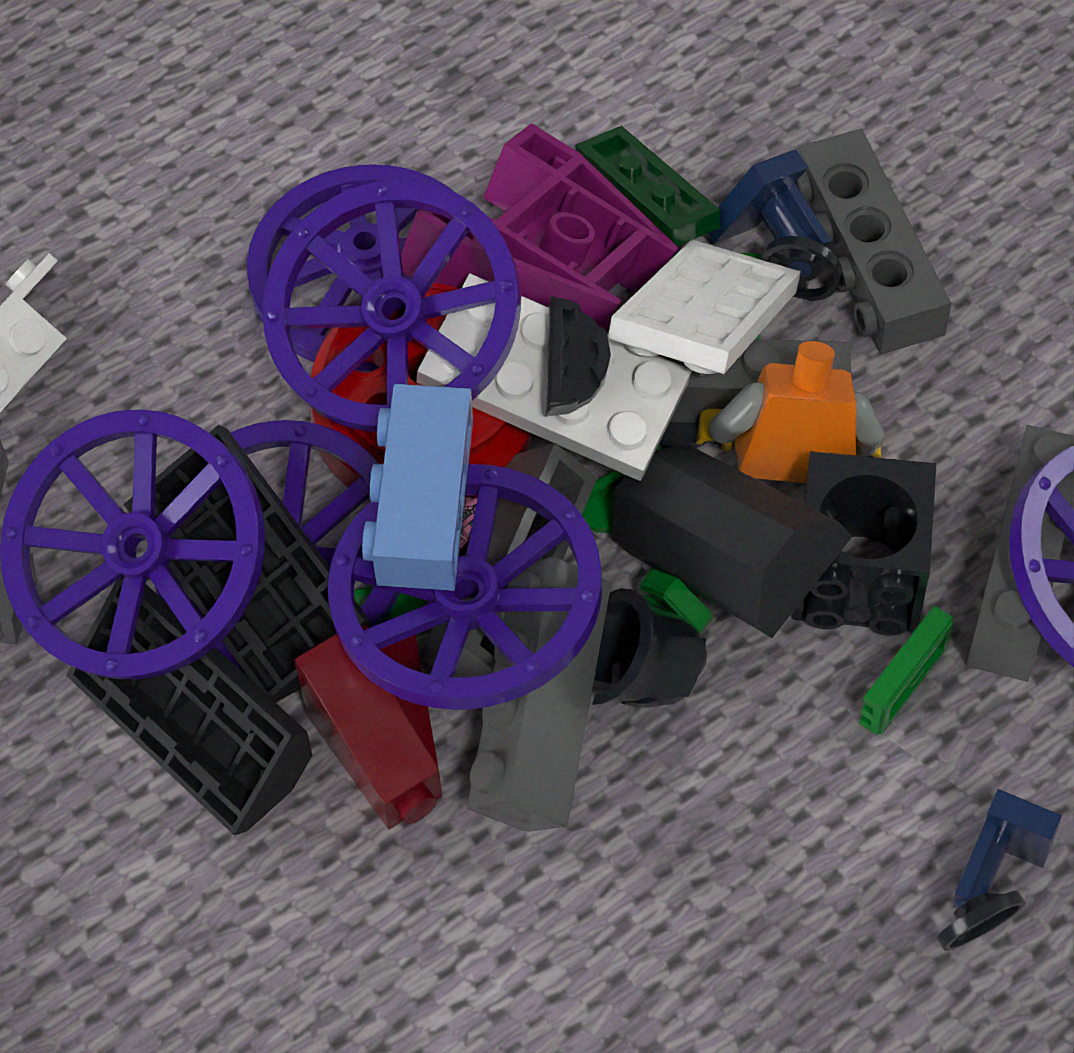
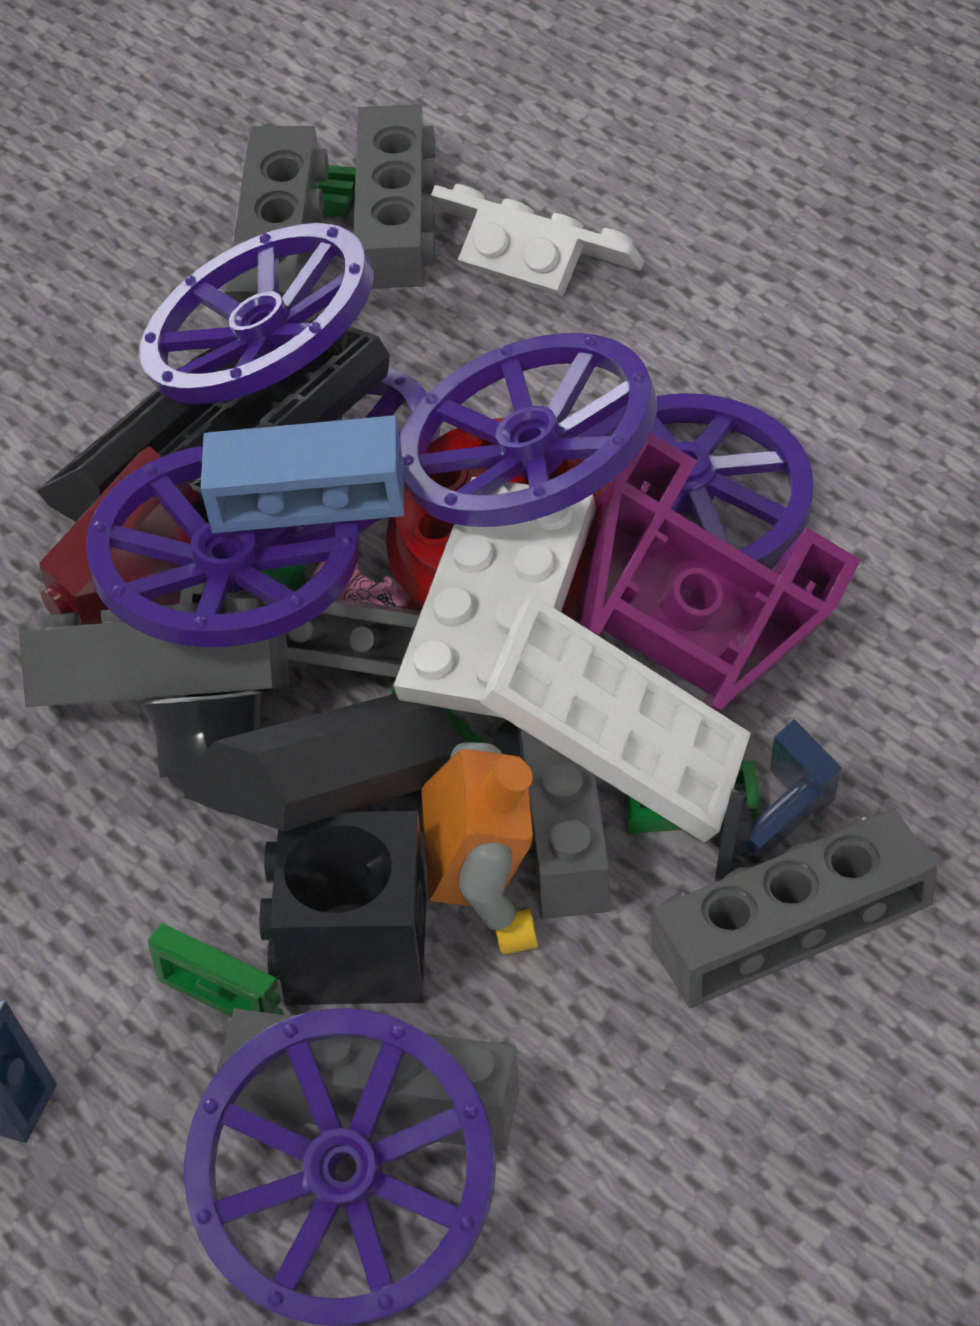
camera: 85 degrees right, 10 degrees down
(575, 358) = (496, 587): black tile -> none
(651, 185) = (823, 686): dark green plate -> none

